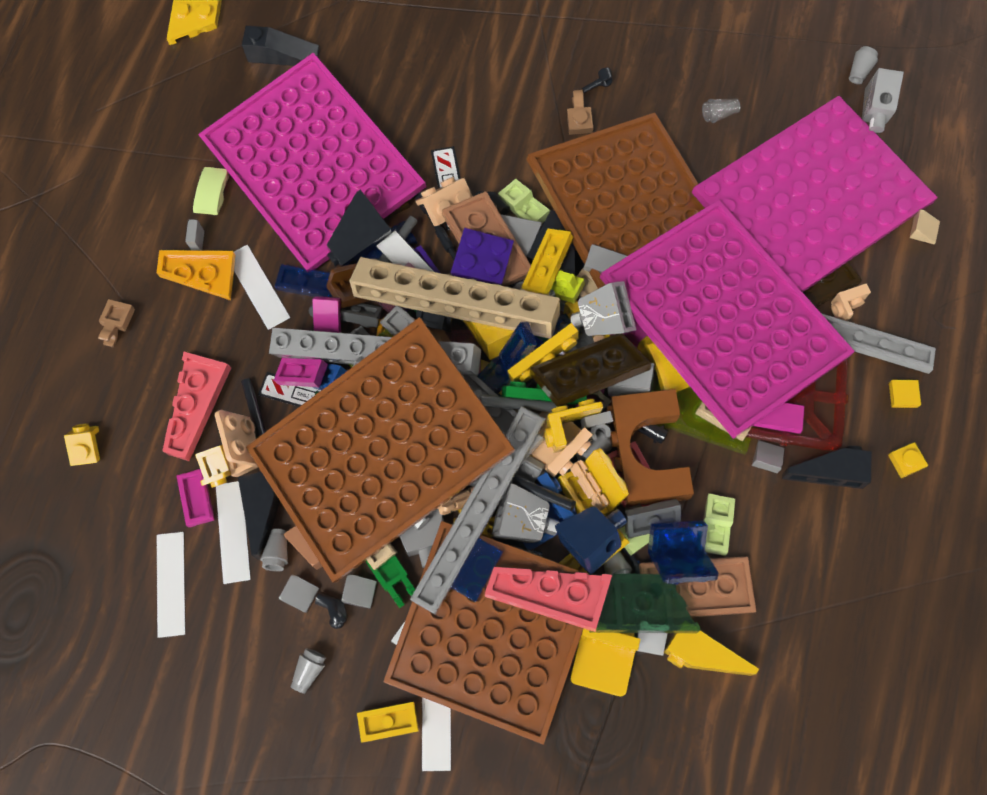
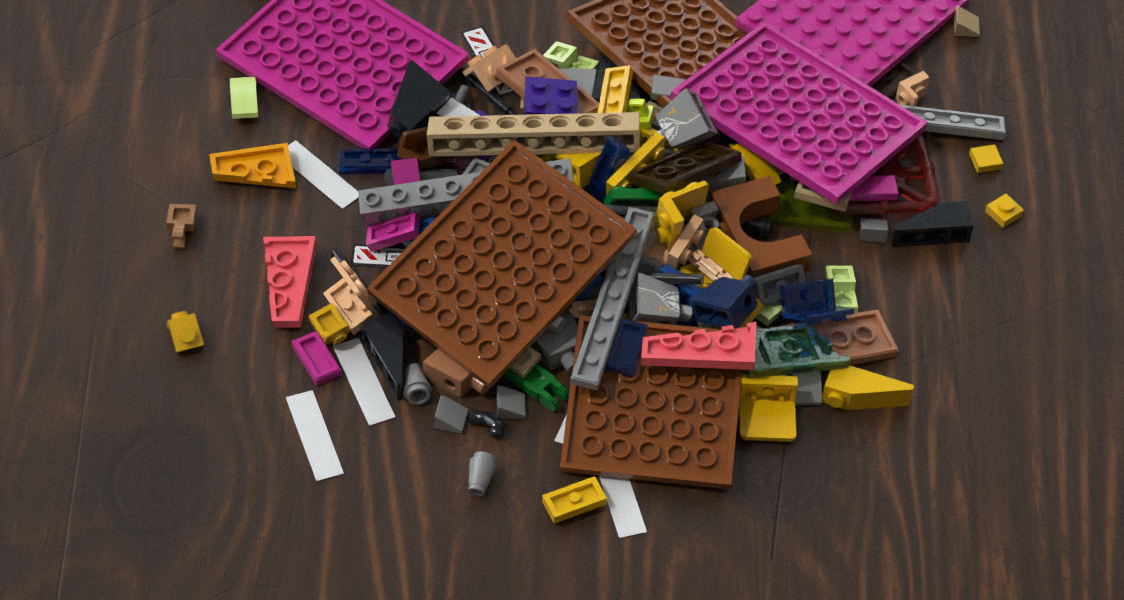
camera: 20 degrees left, 20 degrees down
(194, 235) = (241, 134): light grey tile -> none

